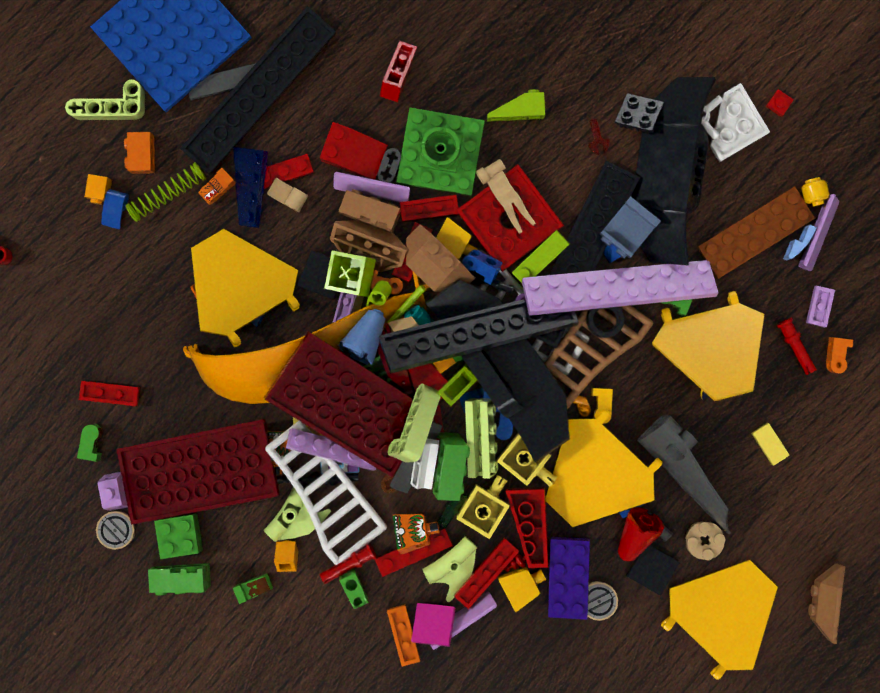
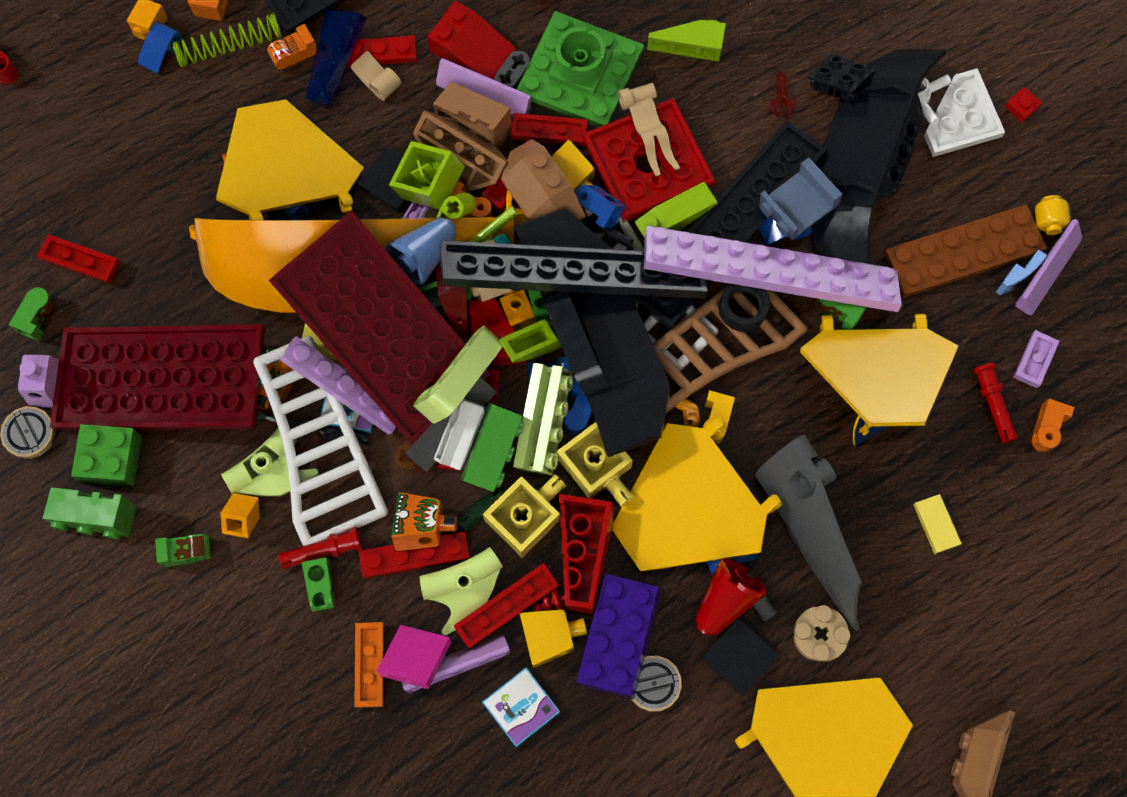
camera: 20 degrees right, 15 degrees down
(513, 638) = (521, 707): none -> tile

